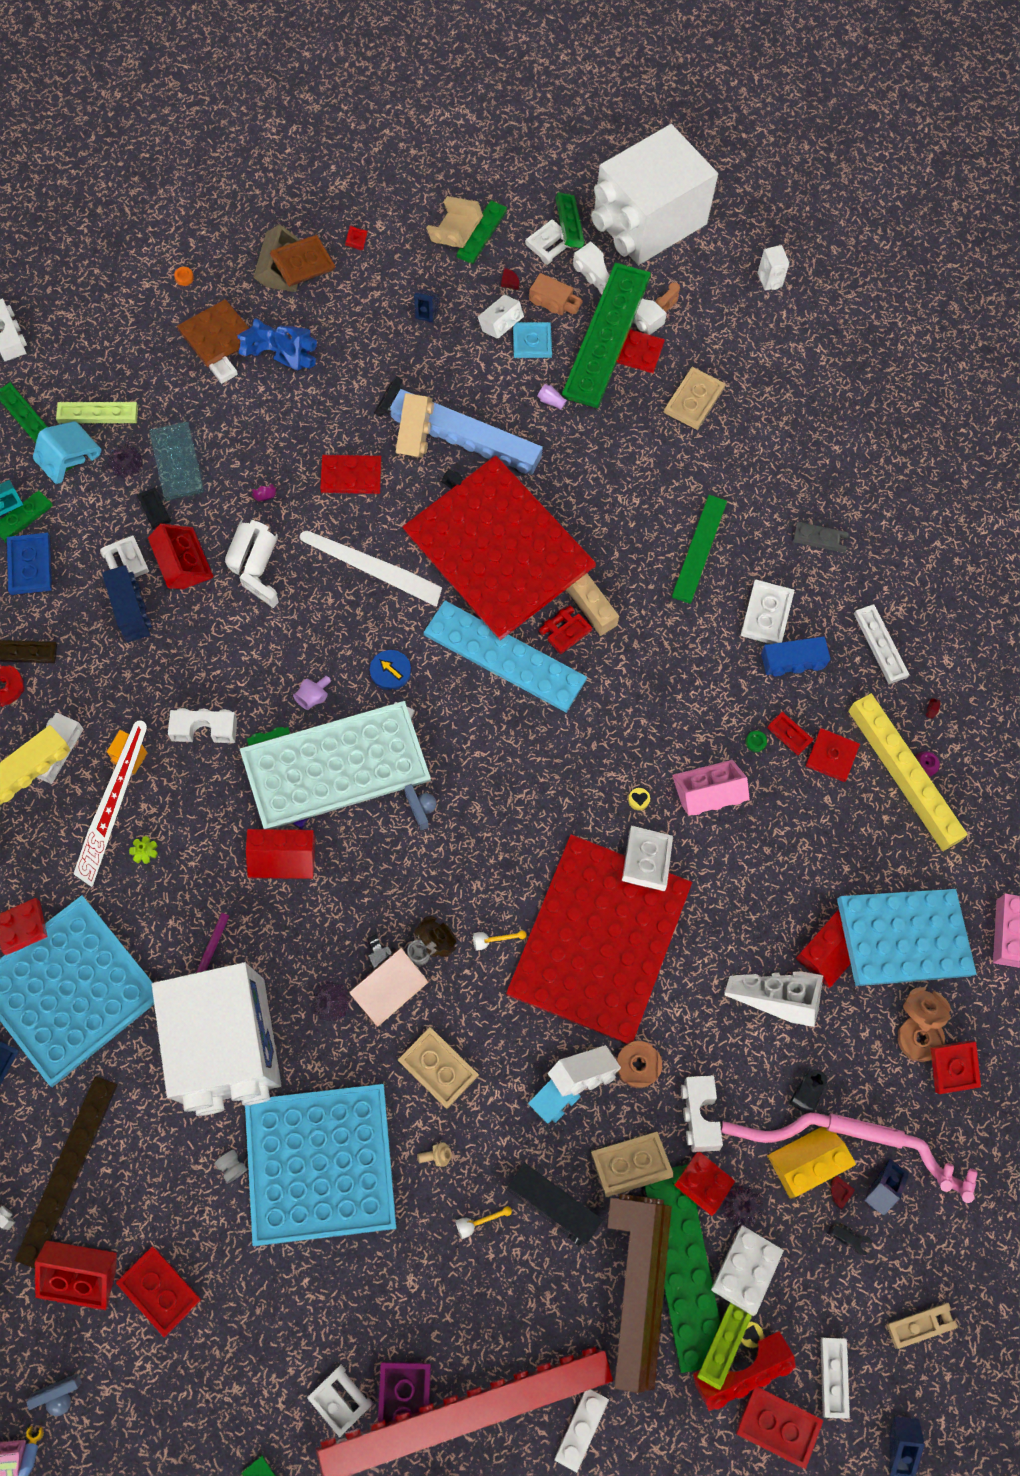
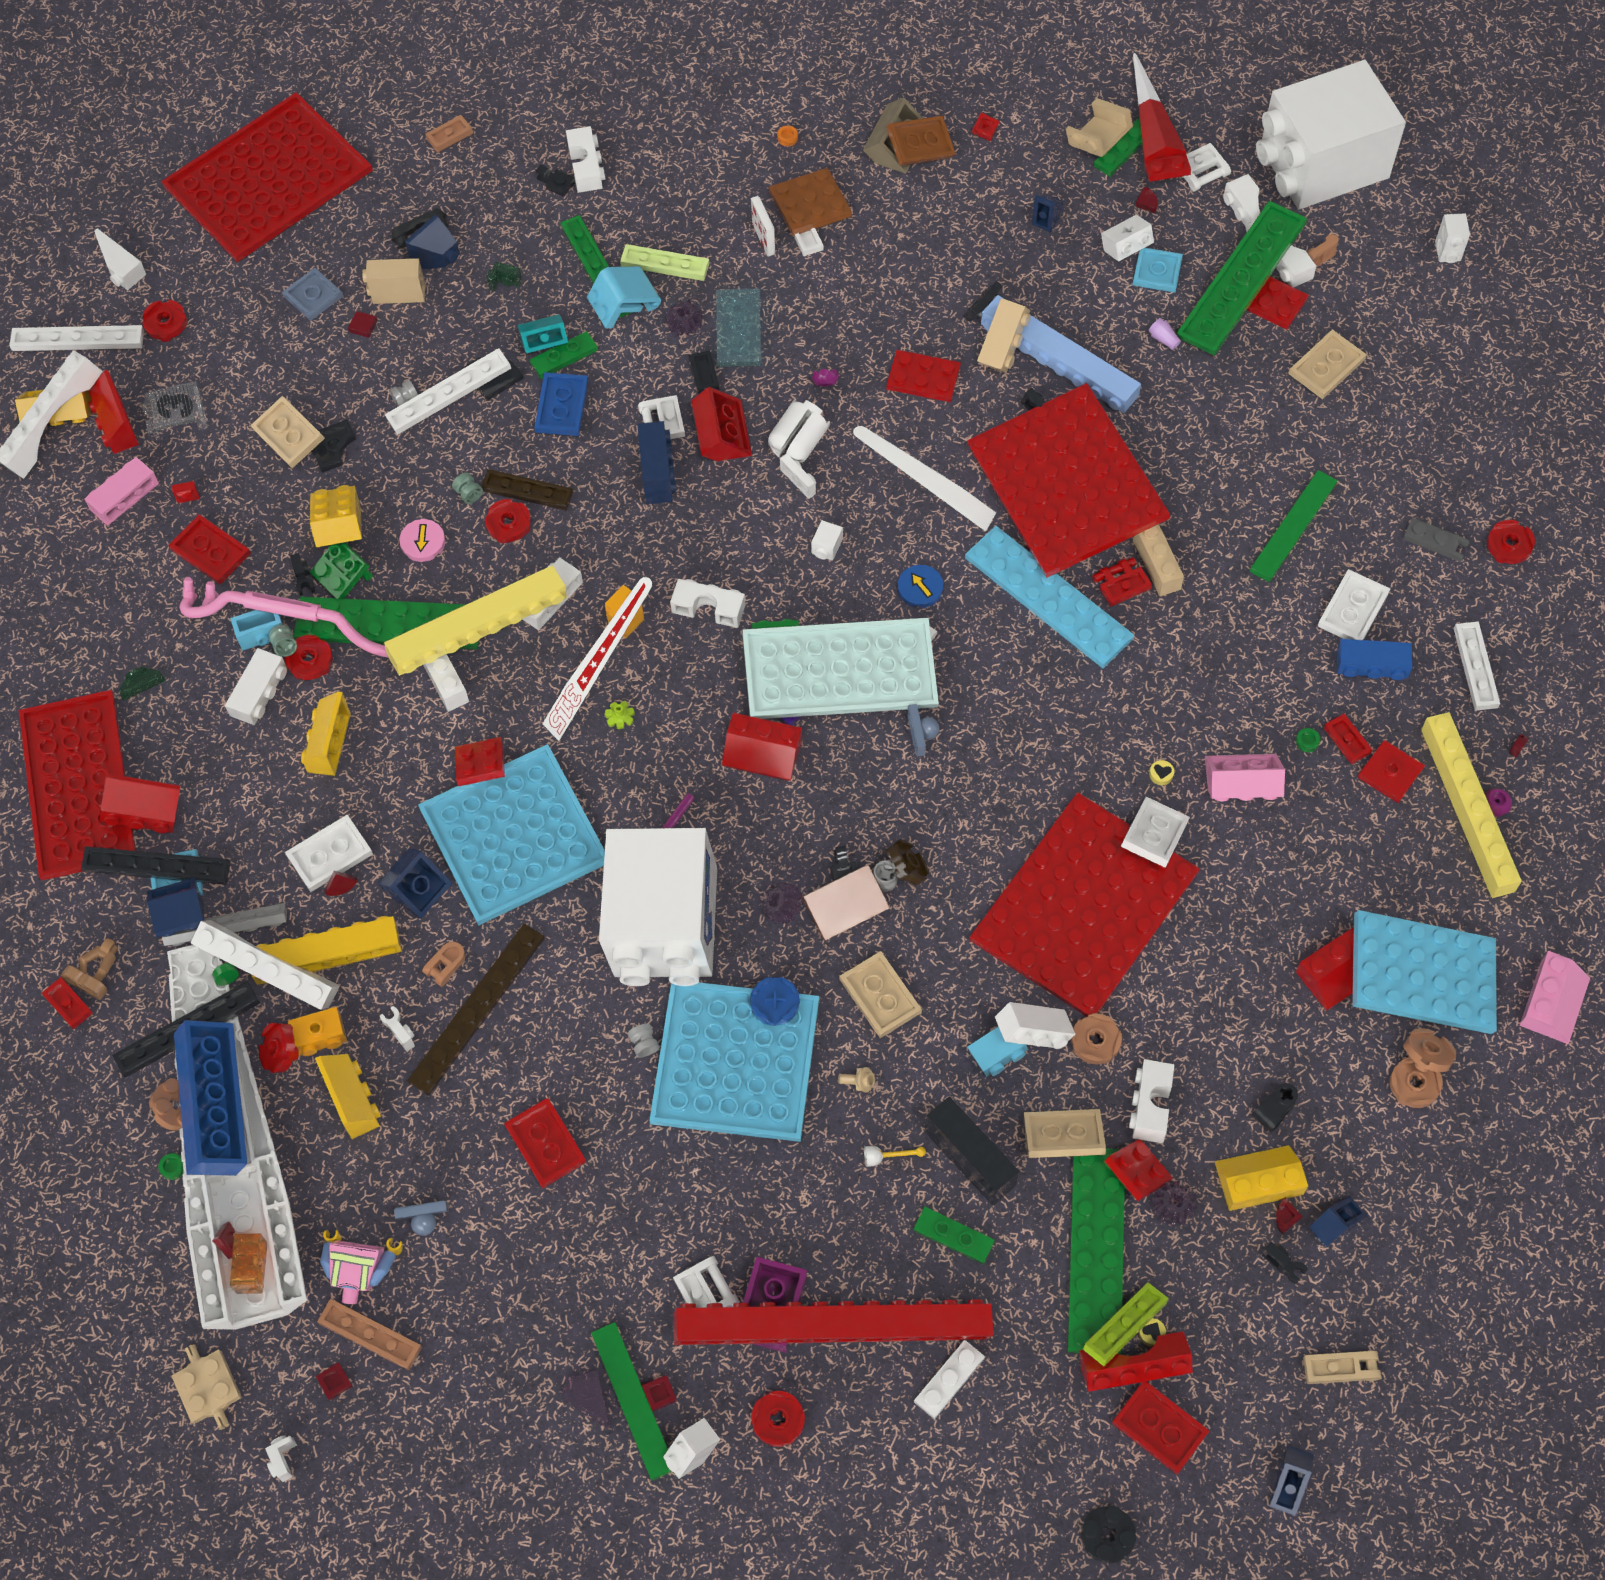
camera: 20 degrees right, 5 degrees down
(32, 1124) = (450, 955): none -> nougat plate
(75, 1275) = (464, 1107): red slope -> none
(178, 363) = (763, 226): none -> white tile
(267, 338) = (864, 216): blue hips -> none
(298, 645) = (827, 540): none -> white brick
(311, 693) = (830, 593): lavender piece -> none
(344, 1099) = (775, 1001): none -> blue tile
(481, 939) = (956, 879): hinge -> none
(512, 230) = (1162, 147): none -> red plate
(554, 295) = (1193, 225): nougat brick -> none
(555, 1286) = (954, 1235): none -> green plate
(569, 220) = (1230, 147): green plate -> none
(643, 1290) = (1046, 1252): reddish brown brick -> none
(747, 1270) = (1163, 1266): white plate -> none
(784, 996) = (1276, 1007): white wedge -> none
(834, 1378) = (1233, 1394): white plate -> none
(868, 1132) = (1329, 1158): bright pink piece -> none
(886, 518) = (1510, 553): none -> red plate
(955, 1067) = (1446, 1117): red plate -> none

